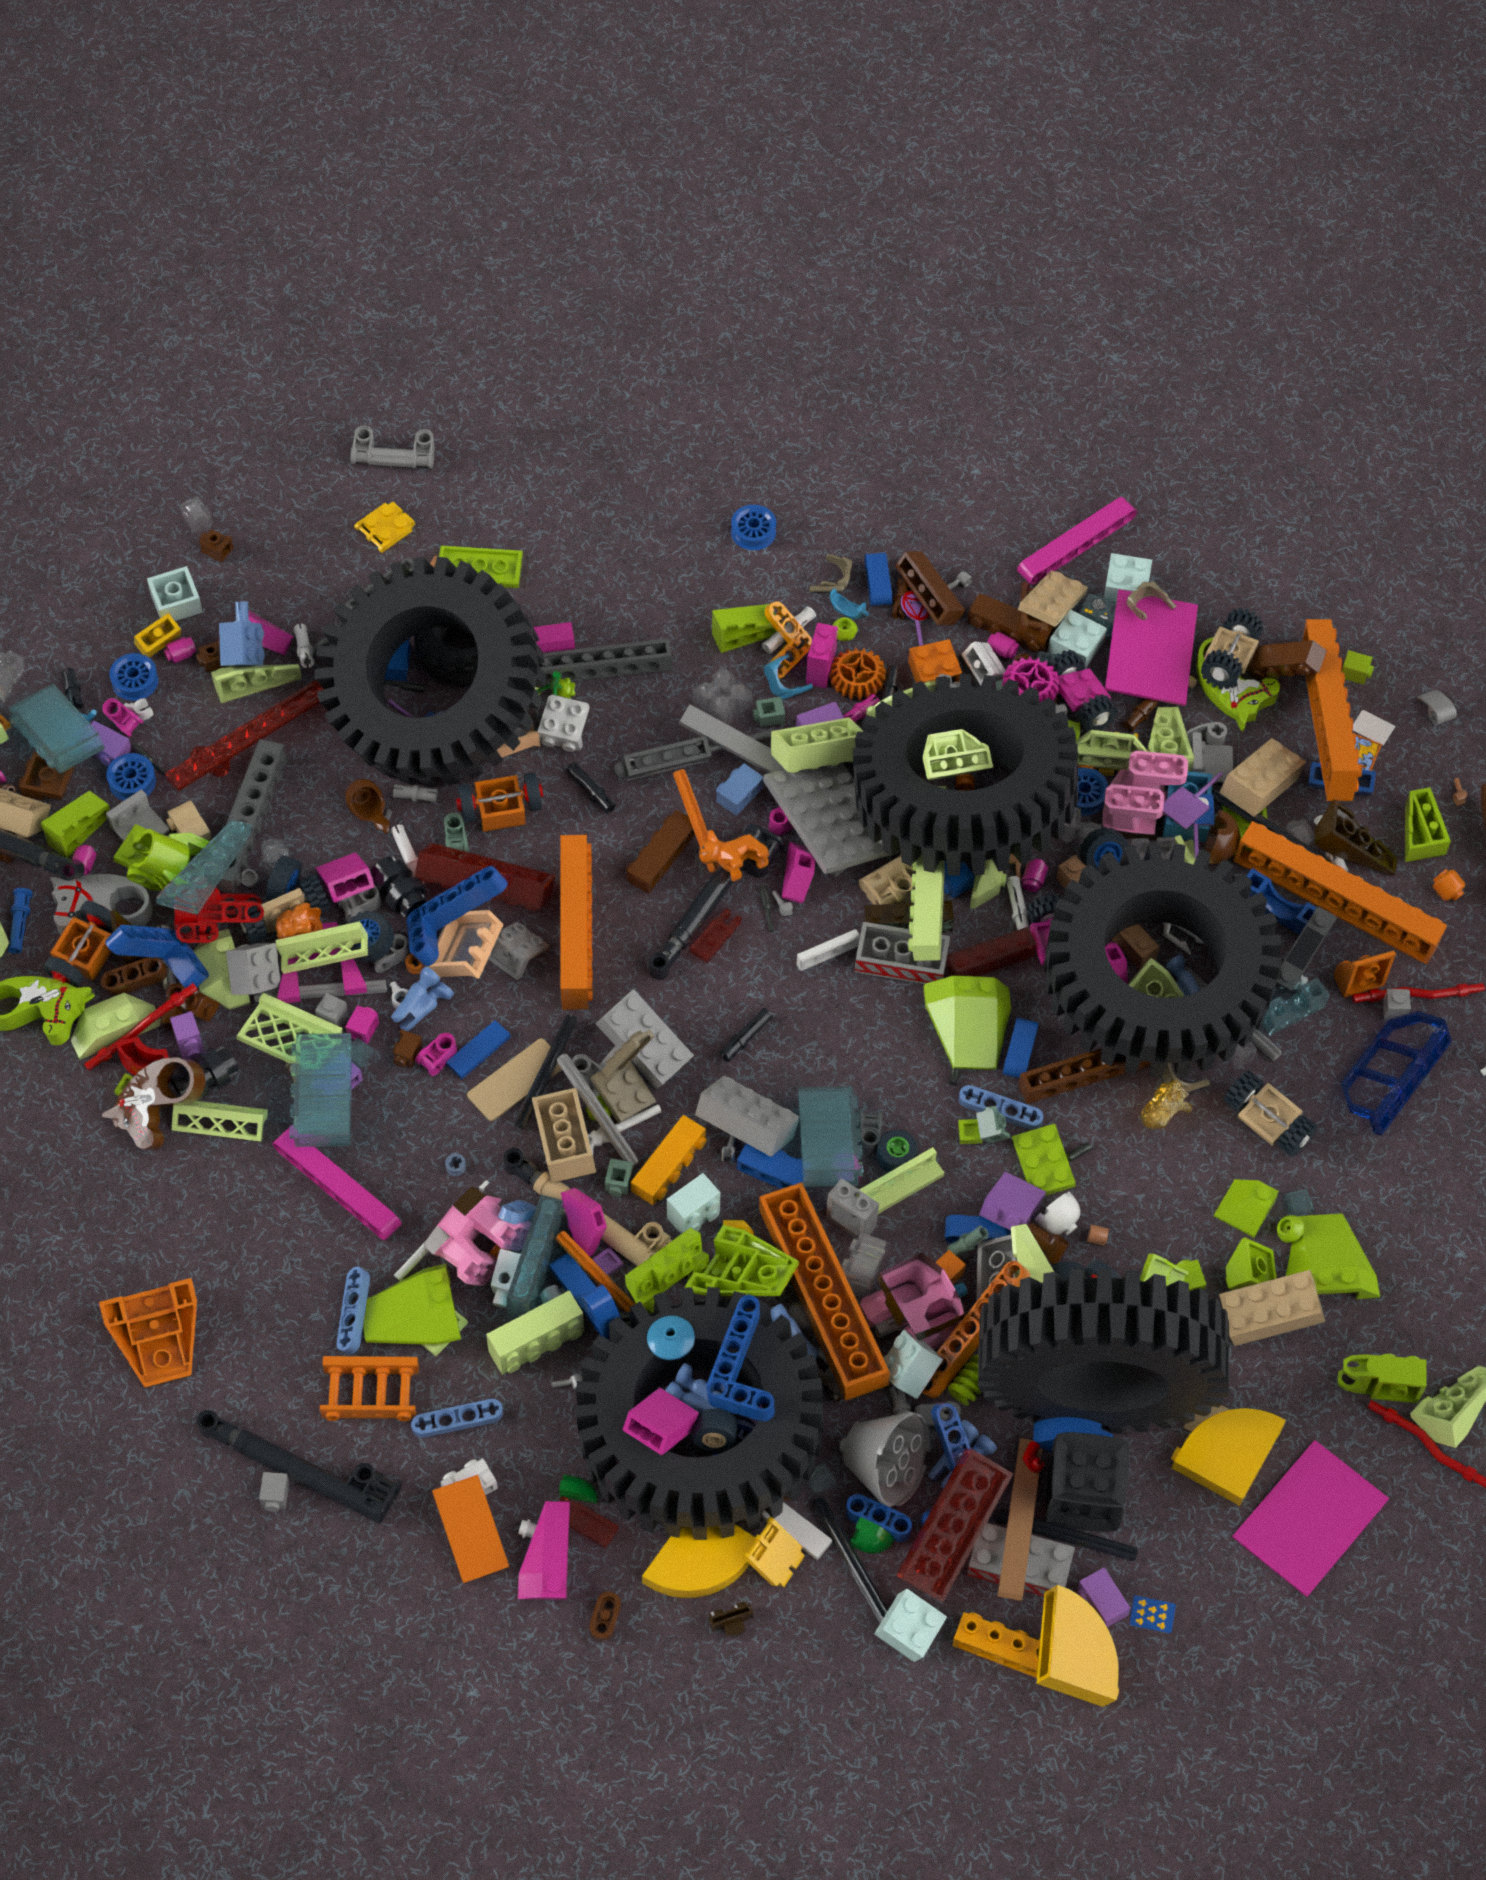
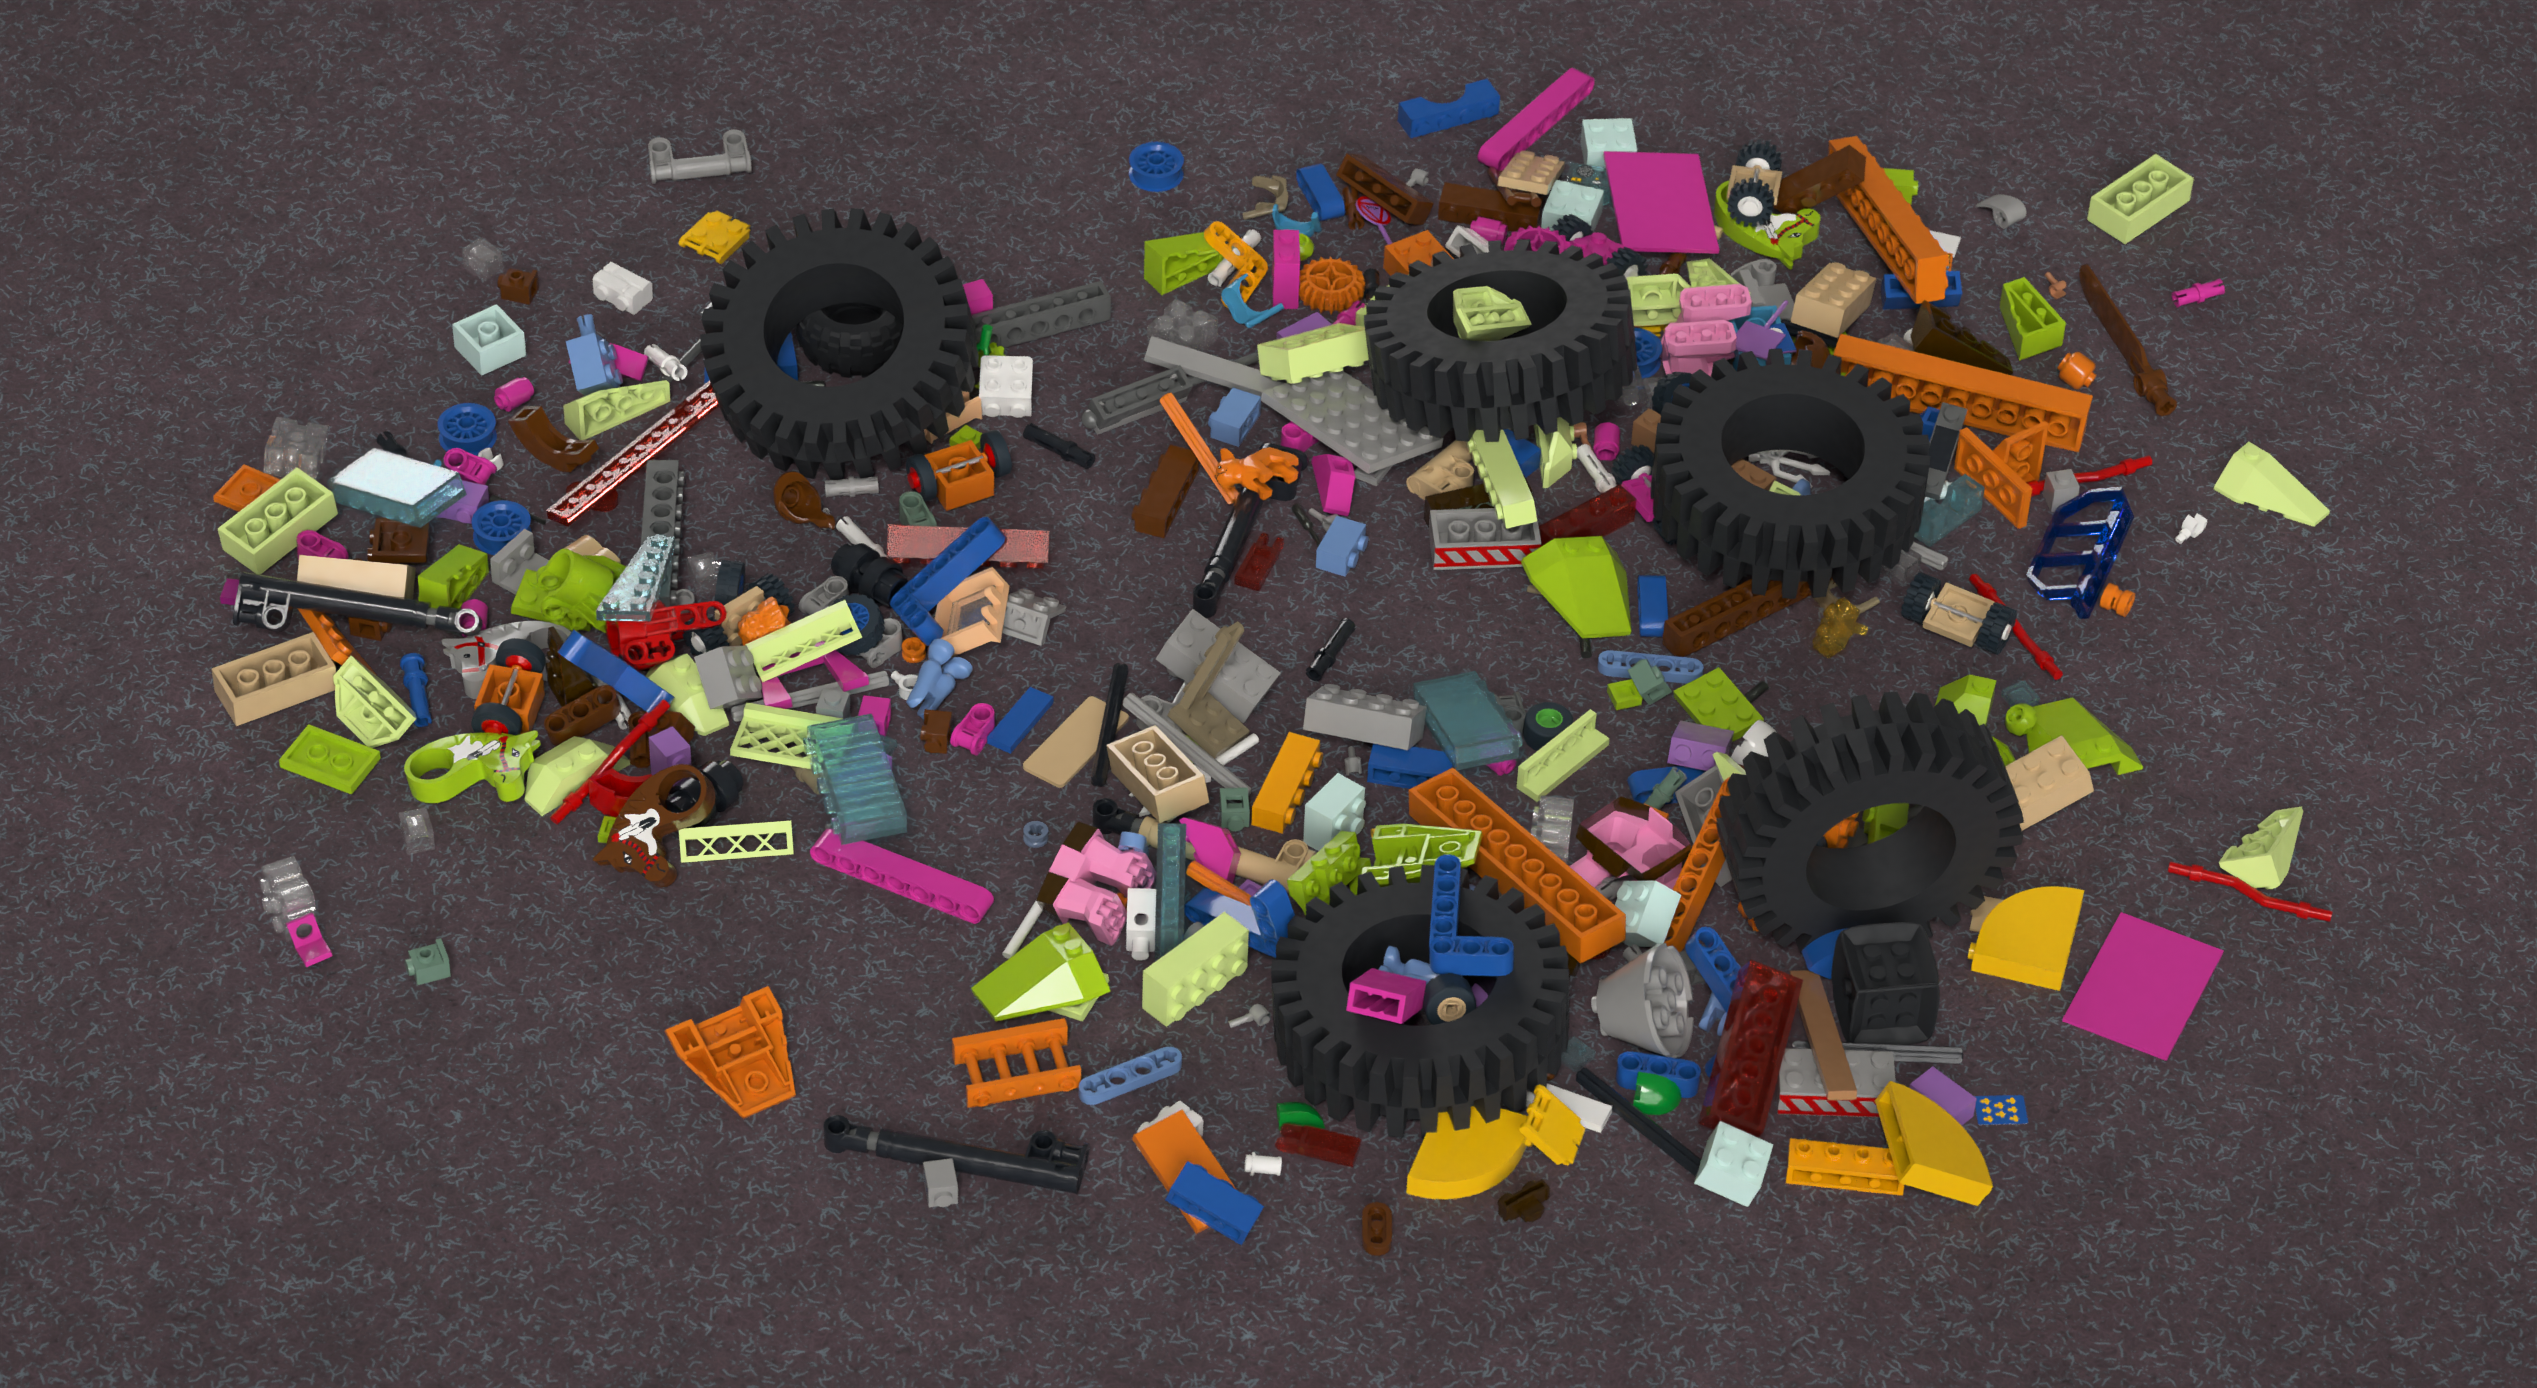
camera: 15 degrees left, 15 degrees down
(157, 635) = (483, 380): yellow brick -> none
(190, 703) = (548, 444): none -> reddish brown arch
(210, 656) = (557, 392): reddish brown brick -> none
(294, 564) = (622, 288): none -> white brick
(345, 877) = (807, 571): dark pink brick -> none
(350, 1336) = (973, 990): medium blue beam -> none
(480, 1565) = (1214, 1202): none -> blue brick
(521, 765) = (966, 434): none -> lime plate
(546, 1560) = (1290, 1183): dark pink wedge -> none
(576, 922) = (1092, 571): orange brick -> none
(670, 1346) = (1365, 921): dark azure dish -> none
(769, 712) = (1242, 337): sand green brick -> none
(785, 935) = (1341, 546): none -> medium blue brick
(828, 950) = (1396, 551): white tile -> none
(843, 1204) = (1514, 801): light grey window -> none
(966, 1382) = (1719, 914): lime piece -> none
(984, 520) = (1424, 117): none -> blue arch
(1029, 1458) = (1813, 982): red arm -> none
(1147, 590) = (1640, 144): dark tan helmet -> none
(1328, 1170) = (2042, 658): none -> red bar
(1341, 984) = (2002, 485): none -> orange tile
(1386, 1377) = (2180, 832): lime brick -> none
(1409, 1125) = (2117, 599): none -> orange wheel

